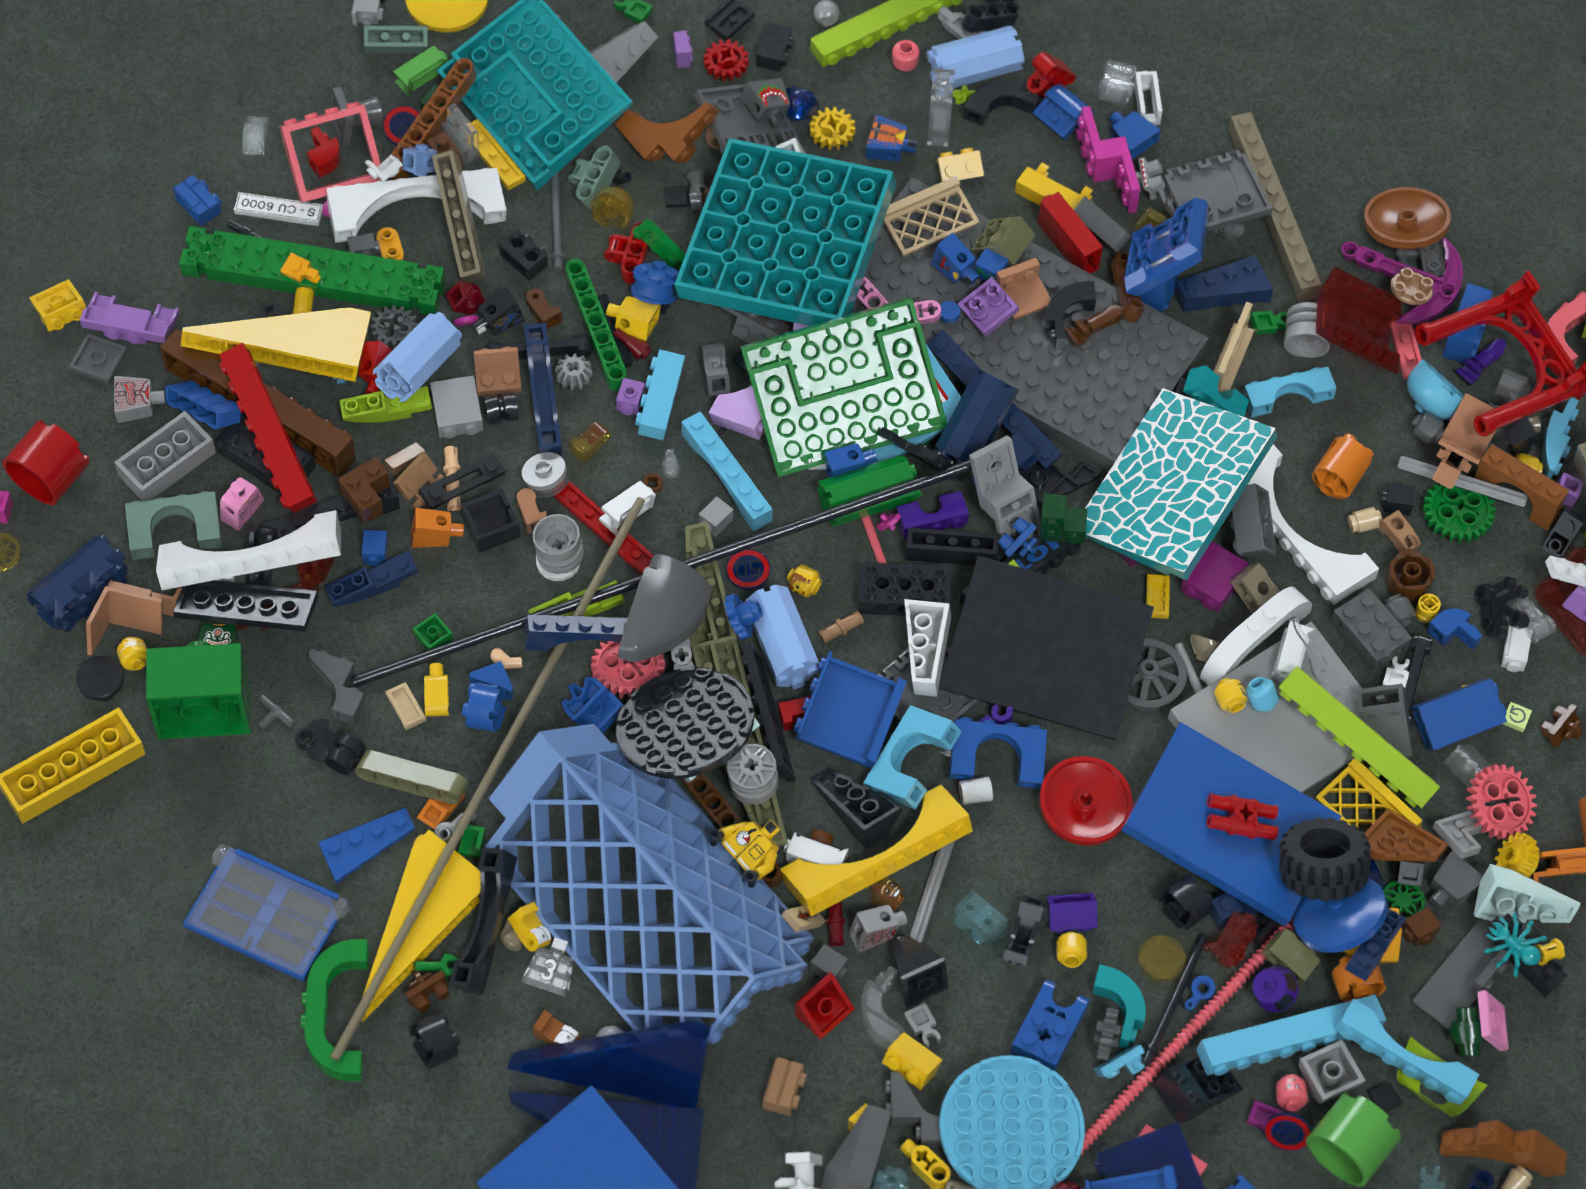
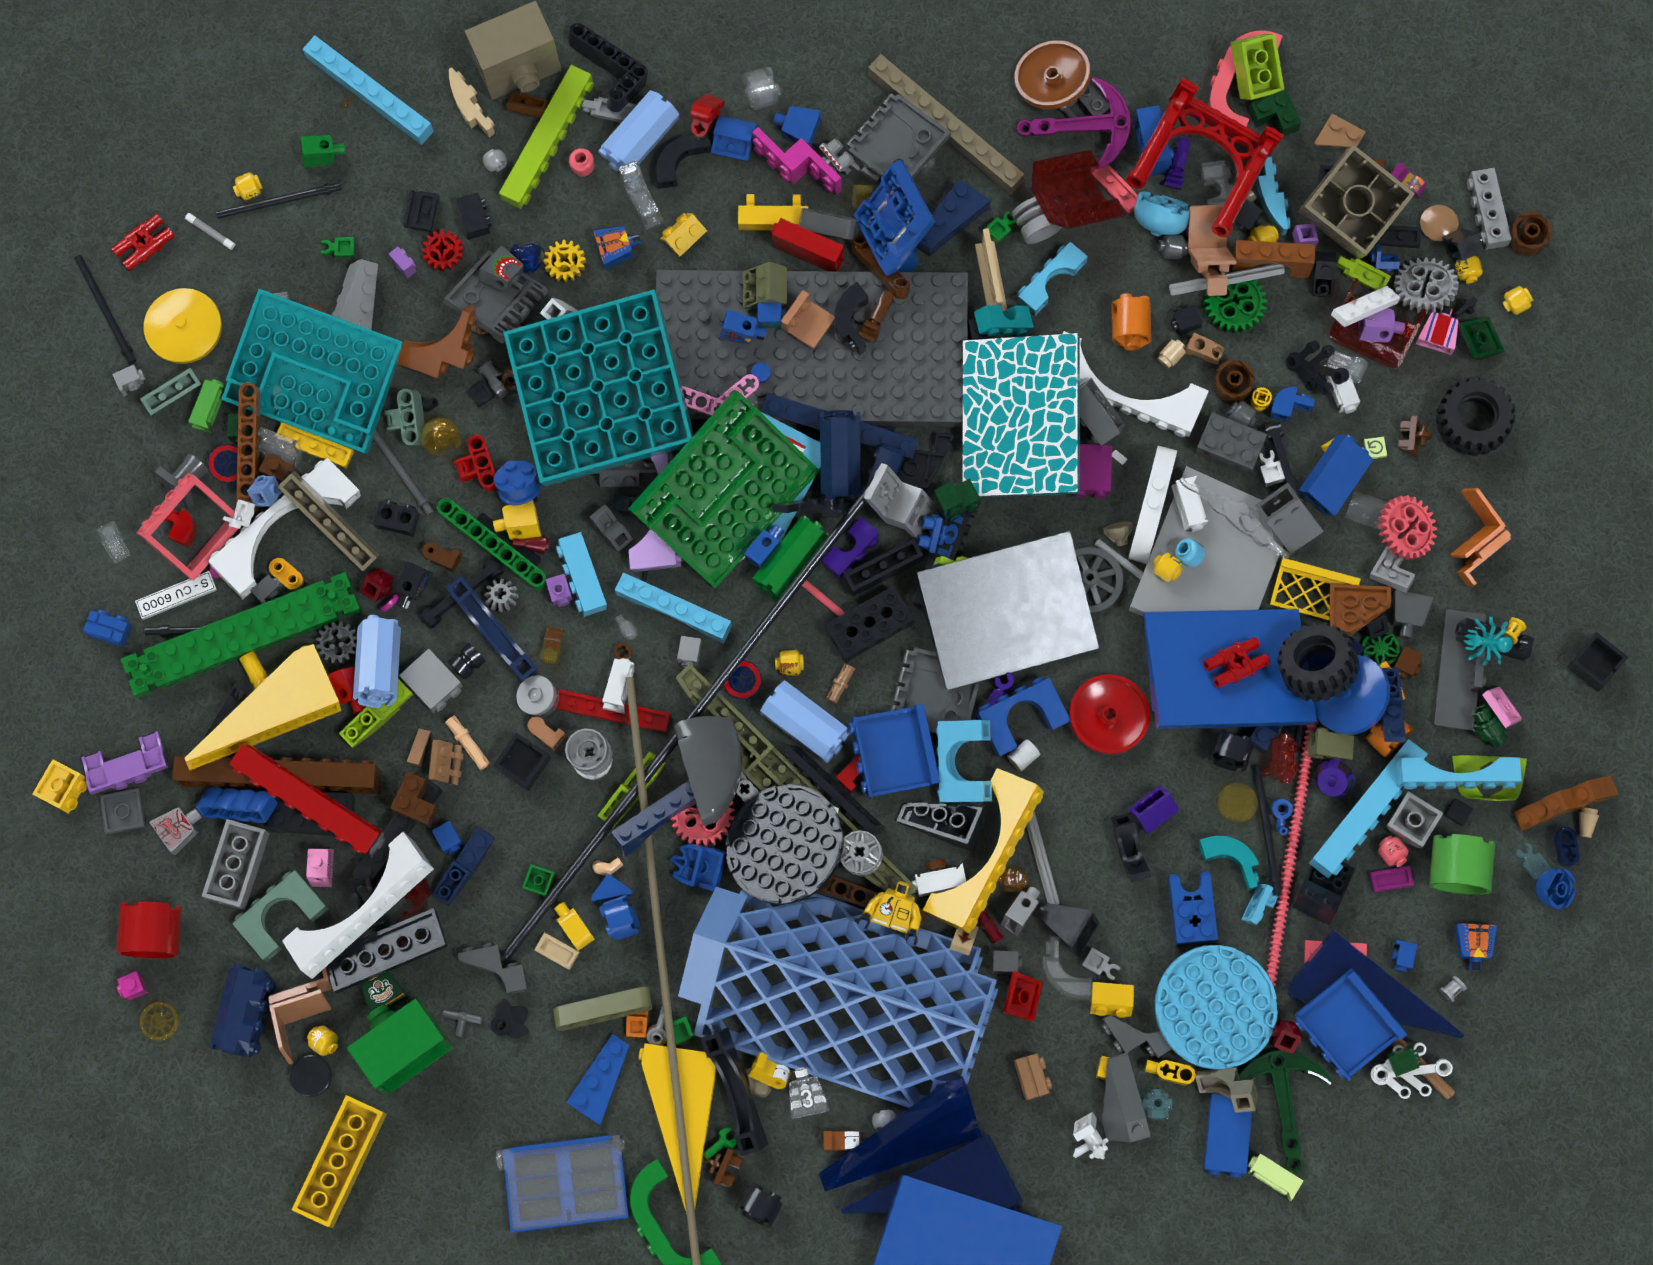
camera: 25 degrees left, 15 degrees up
(299, 268) = (233, 644): light orange plate -> none
(344, 754) = (539, 1020): black wheel -> none
(433, 528) = (478, 801): orange torso -> none
(436, 495) = (466, 766): black container -> none
(497, 371) = (444, 633): nougat bracket -> none
(660, 243) = (501, 447): green plate -> none
(742, 615) = (768, 726): blue plant -> none
(888, 521) = (821, 574): dark pink piece -> none
(924, 199) = (680, 290): tan fence -> none
(927, 639) = (915, 658): white wedge -> none
(962, 95) = (648, 169): lime plant -> none
(979, 919) = (1090, 856): clear light blue brick -> none
(988, 307) = (789, 351): medium lavender plate -> none
(1071, 949) = (1170, 838): yellow head -> none
(1108, 1029) = (1239, 891): dark grey gear -> none
(1148, 81) = (784, 69): white window -> none
(1158, 595) = (1058, 512): yellow plate -> none
(1247, 584) = (1130, 463): dark tan brick -> none
(1287, 1131) = (1410, 884): piece -> none
(1358, 736) = (1278, 542): lime brick -> none
(1412, 287) = (1094, 136): medium nougat dish -> none
(1509, 892) = (1459, 598): light aqua wedge -> none
(1519, 854) = (1445, 566): yellow gear -> none

